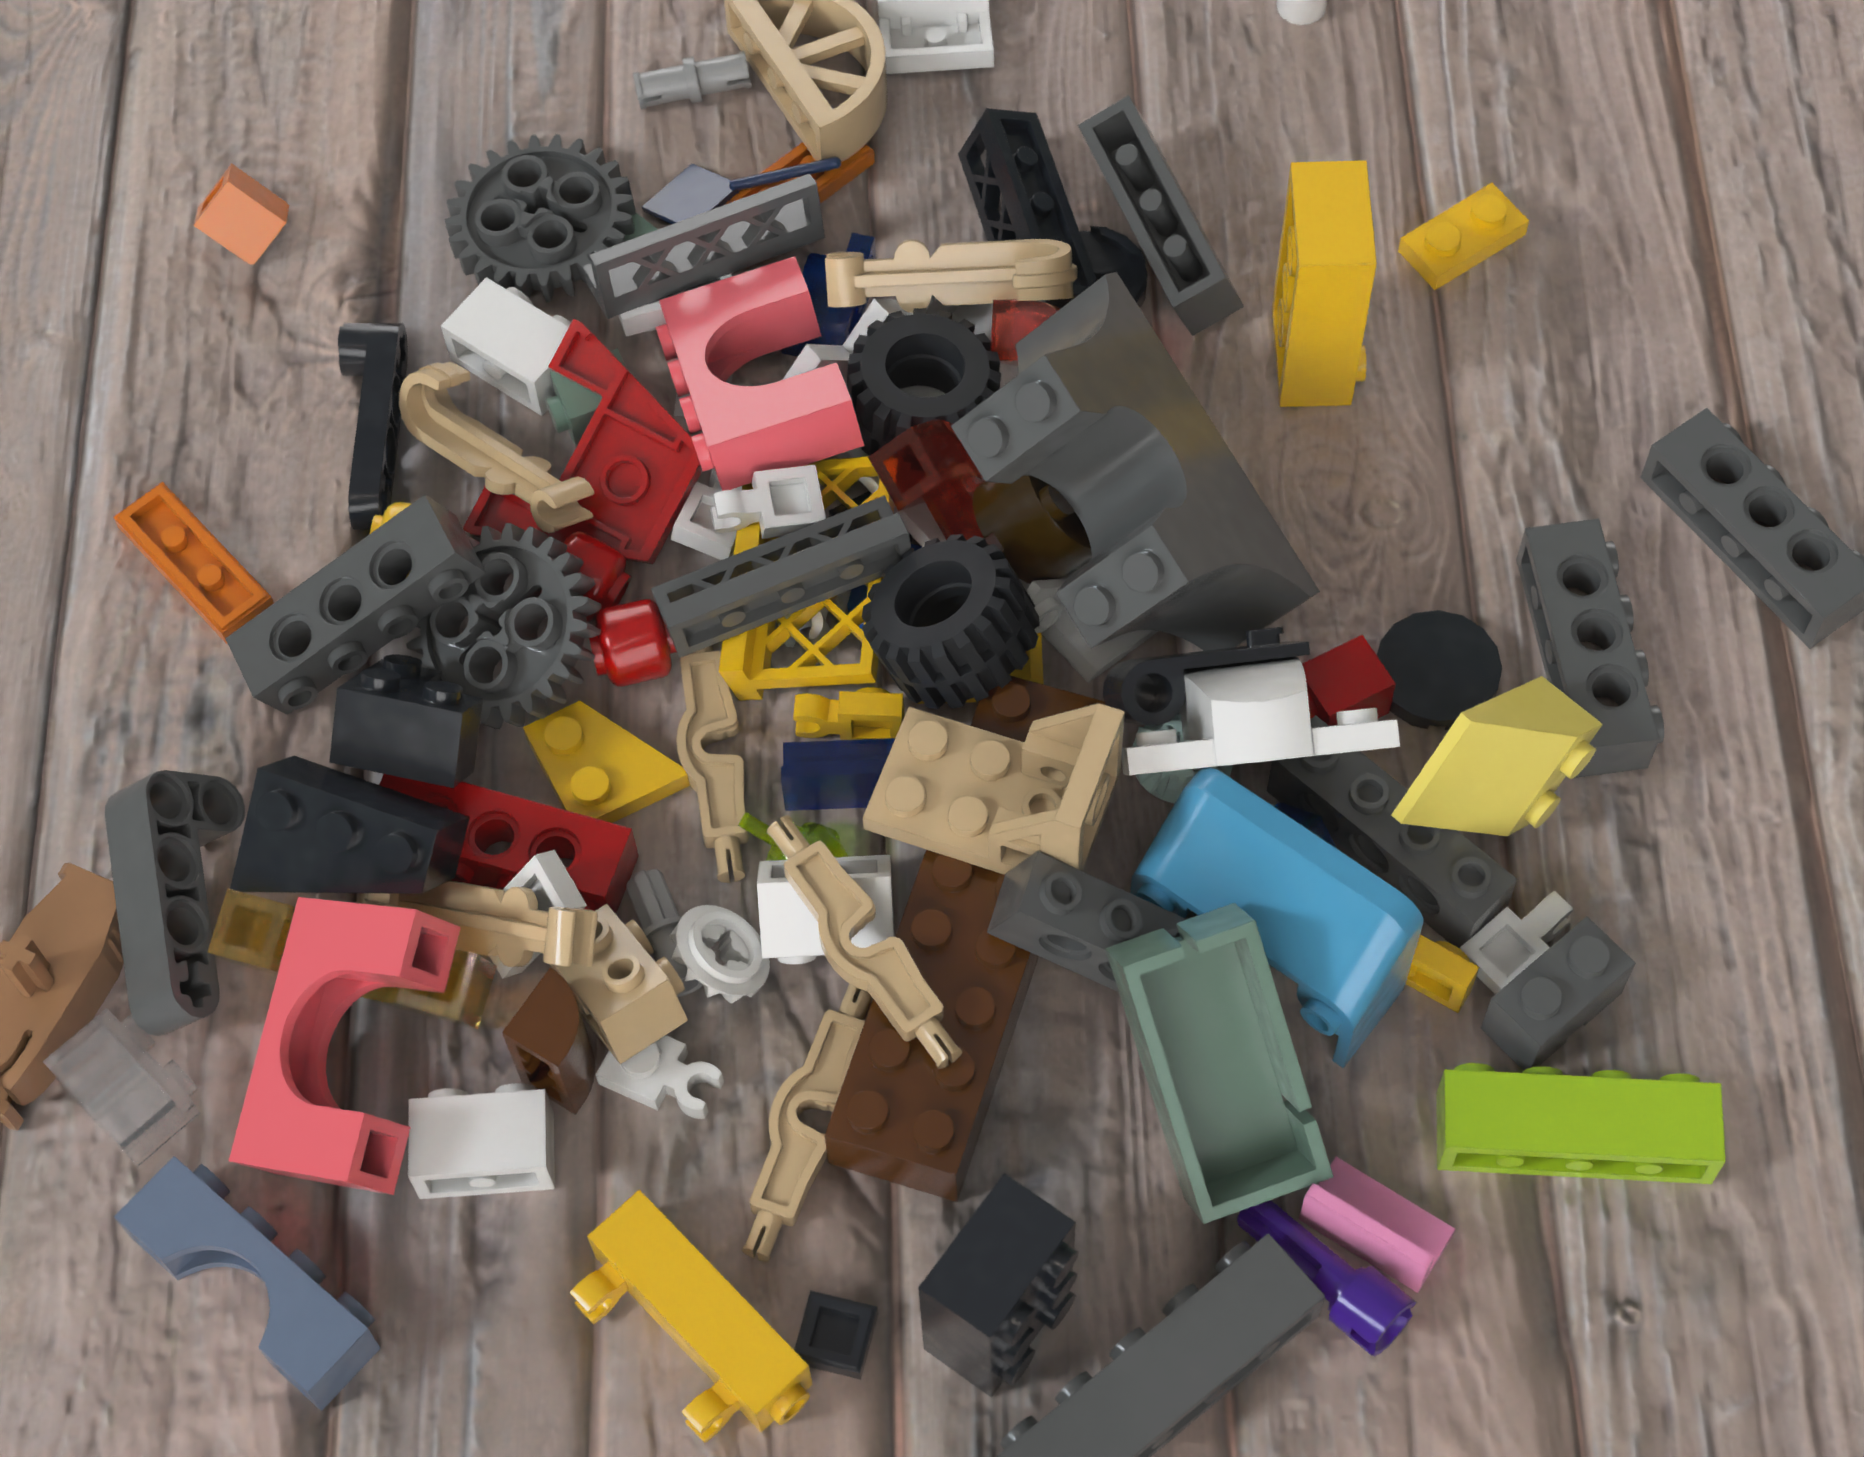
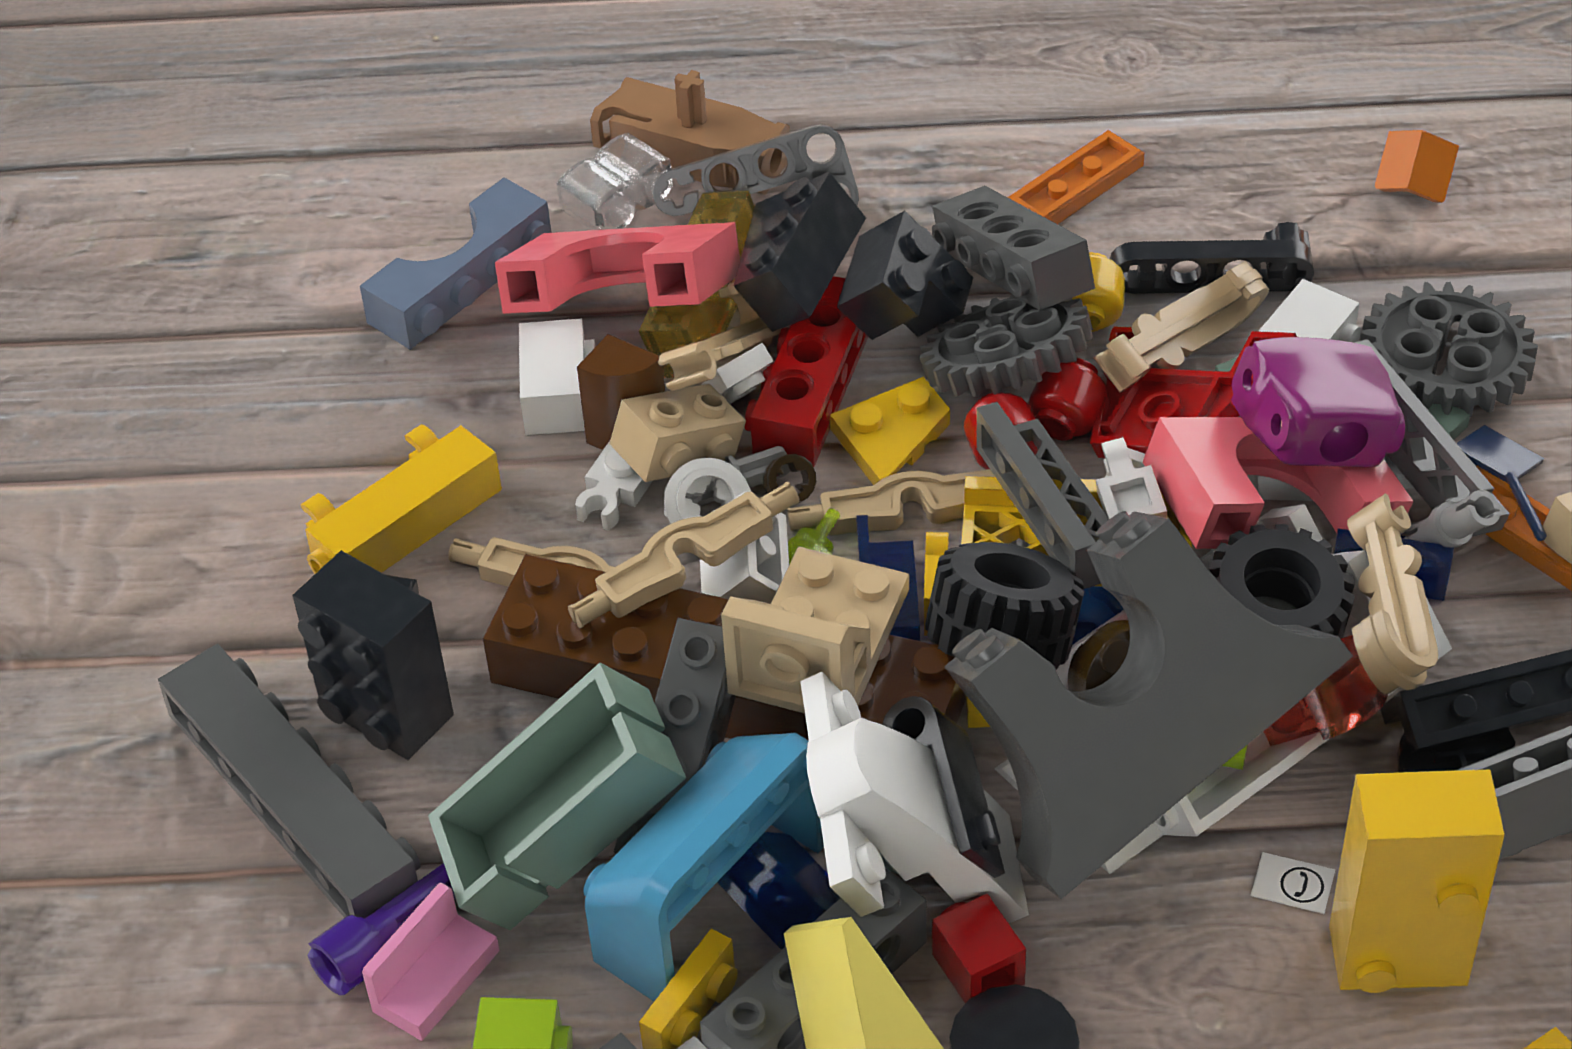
camera: 90 degrees right, 15 degrees down
(684, 867) = (795, 463): none -> dark brown bush
(689, 297) = (1330, 401): none -> magenta piece
(834, 222) = (1455, 522): none -> light grey pin
(1237, 425) = (1293, 882): none -> white sticker

